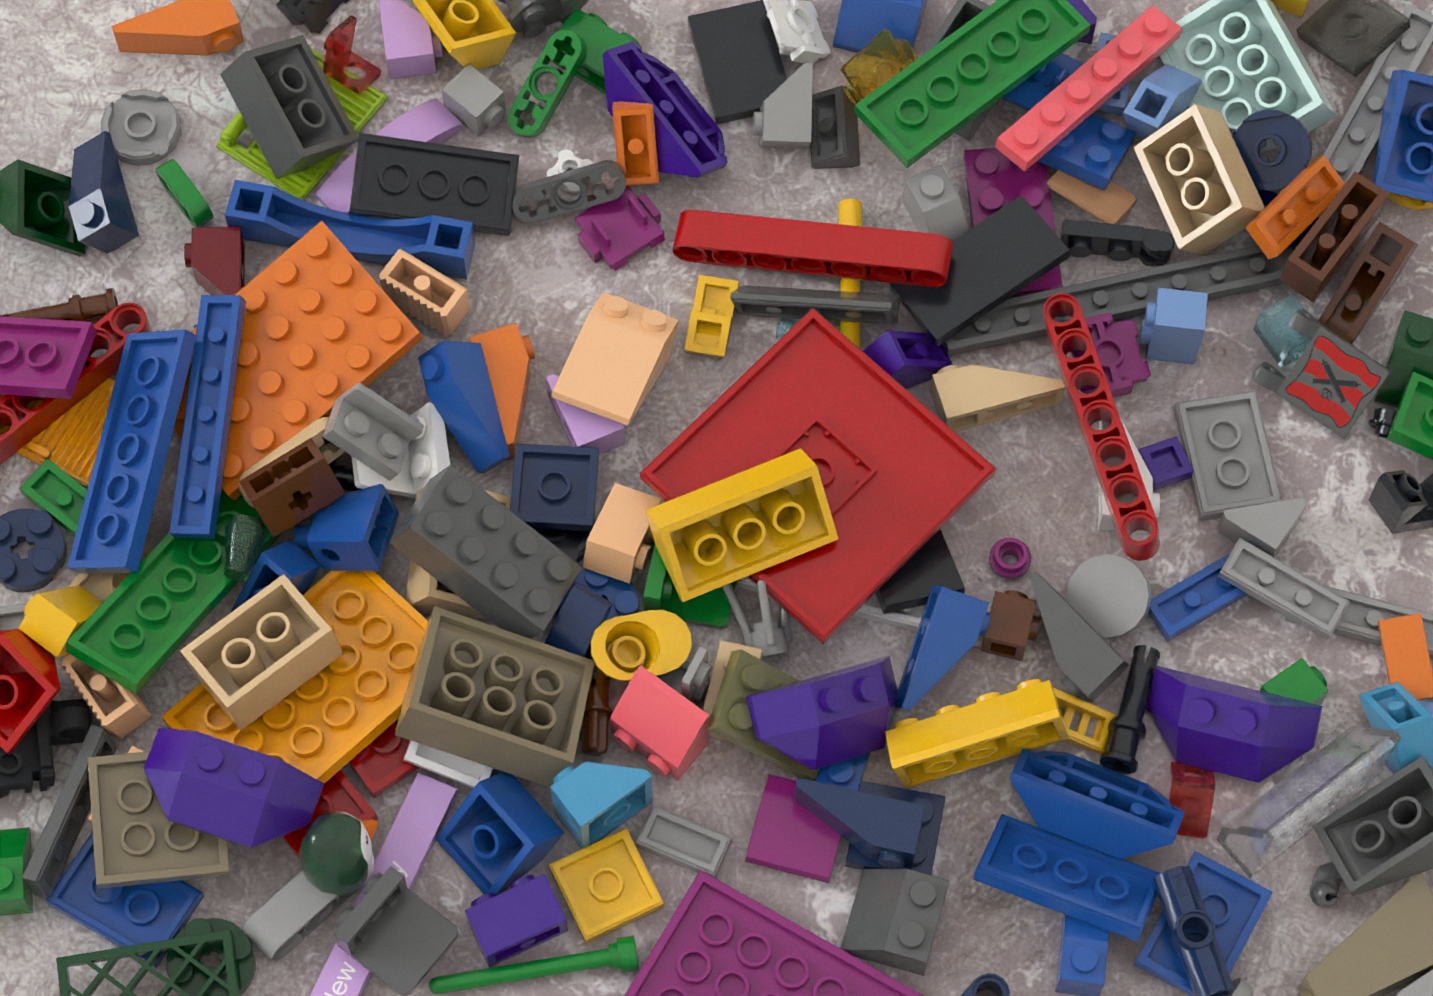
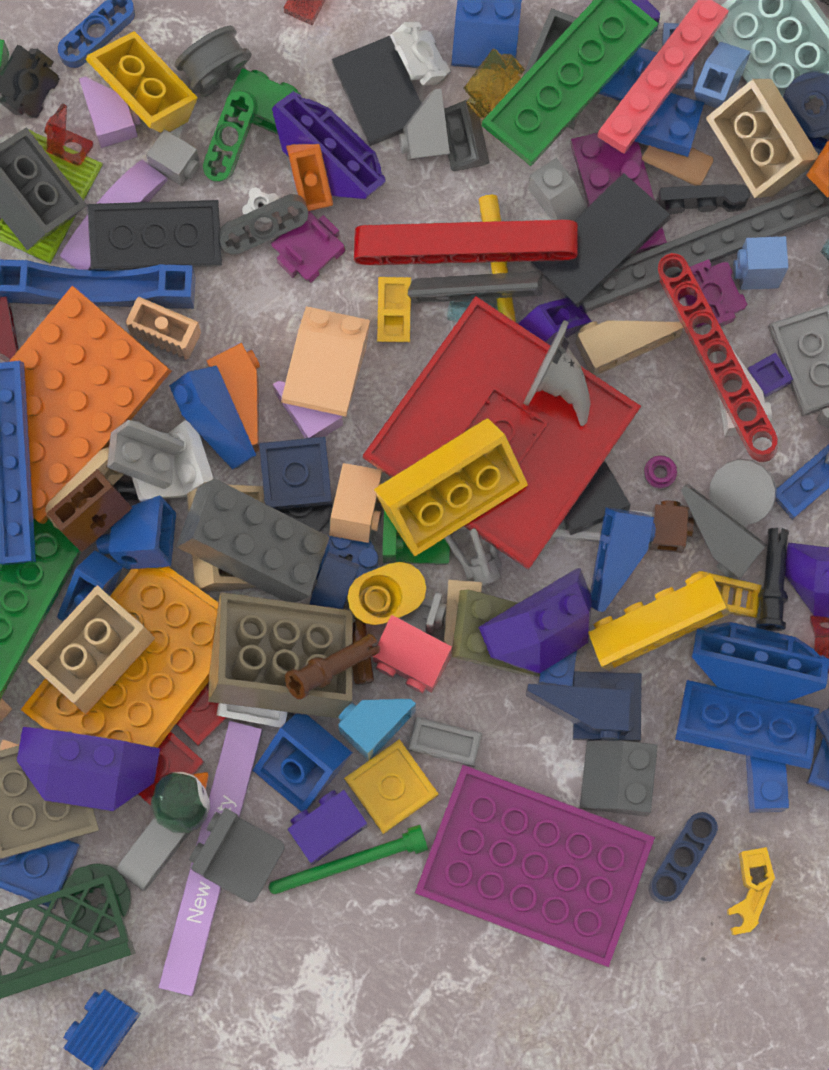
camera: 10 degrees left, 10 degrees up
(242, 545) = (59, 563): clear green cone -> none
(540, 717) = (321, 671): none -> reddish brown pin
(790, 835) = (527, 725): magenta slope -> none
(899, 408) = (562, 376): none -> light grey piece

